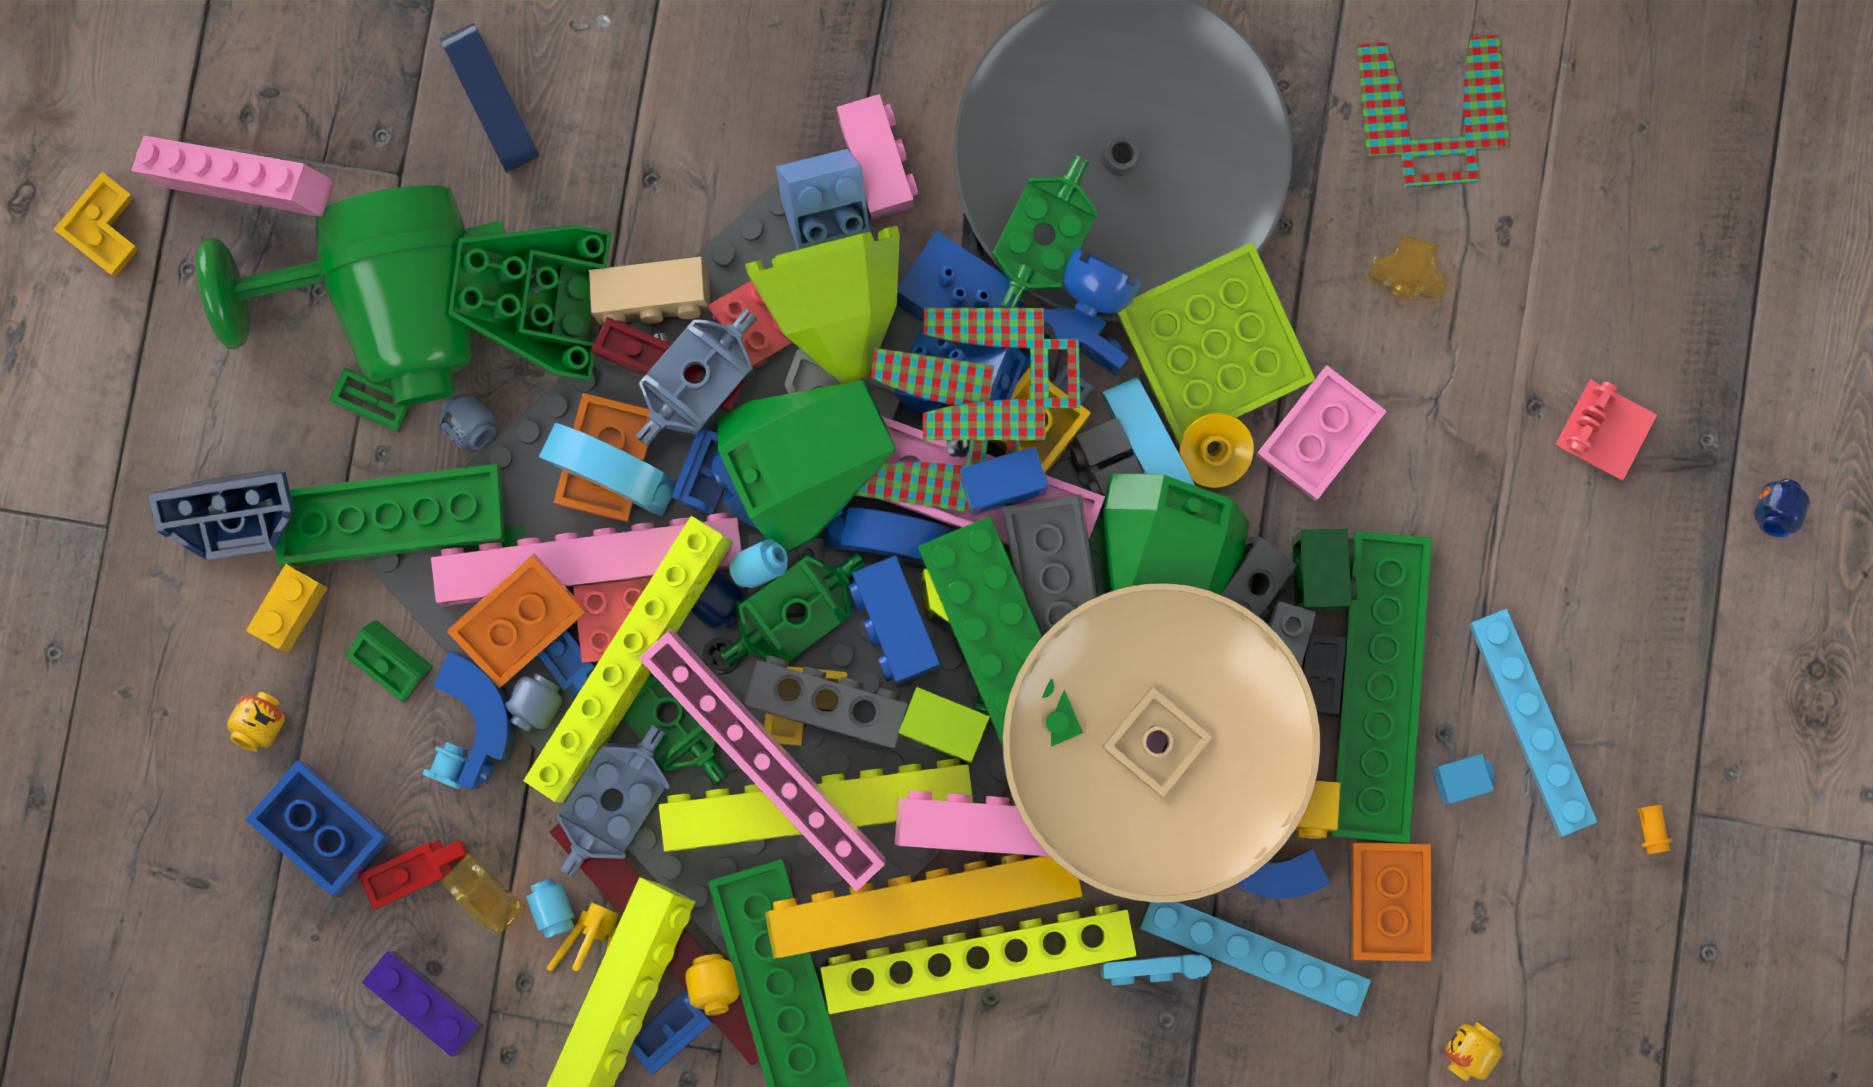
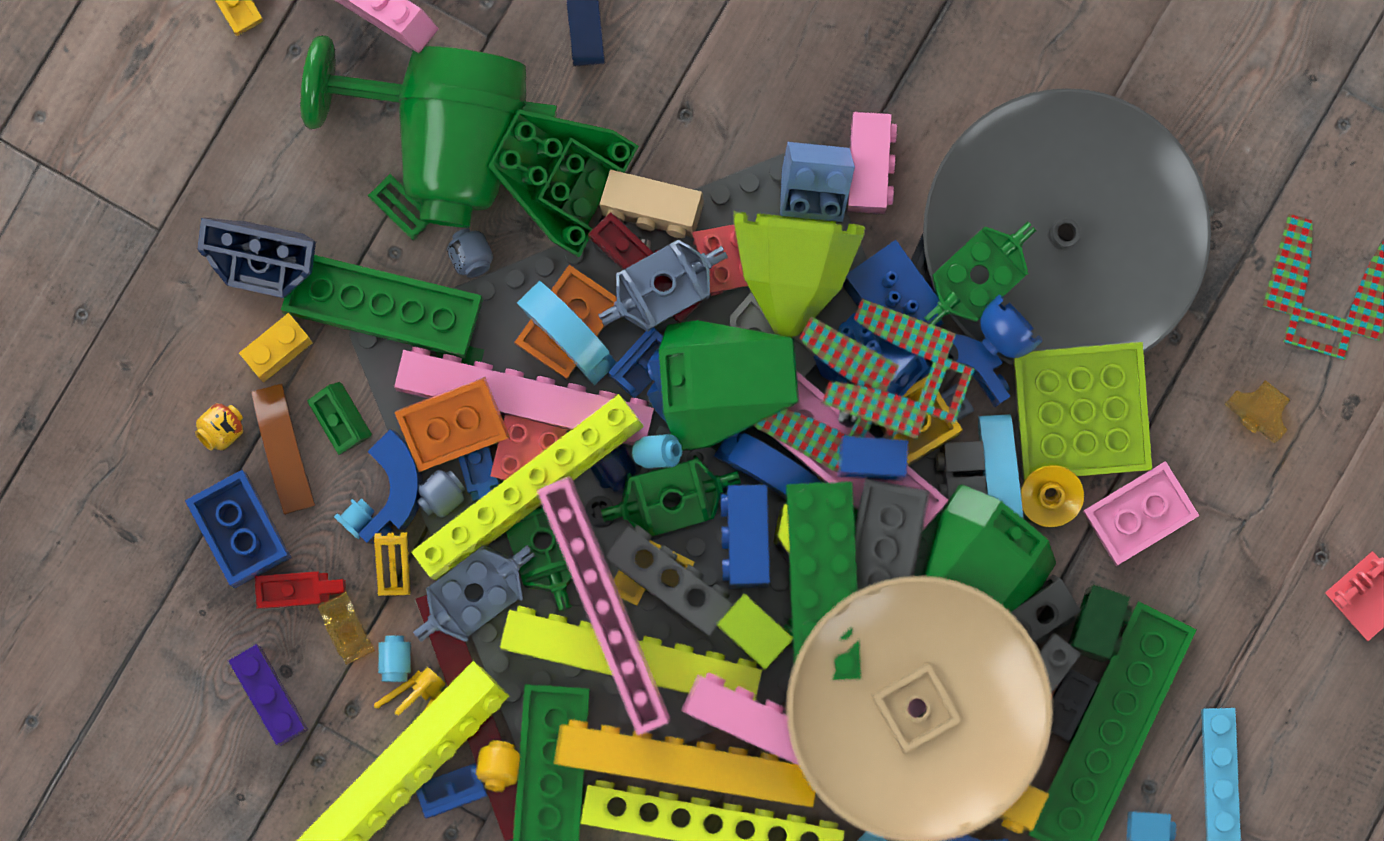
camera: 20 degrees right, 0 degrees up
(337, 720) = (282, 449): none -> dark orange slope
(496, 776) = (391, 540): none -> yellow tile

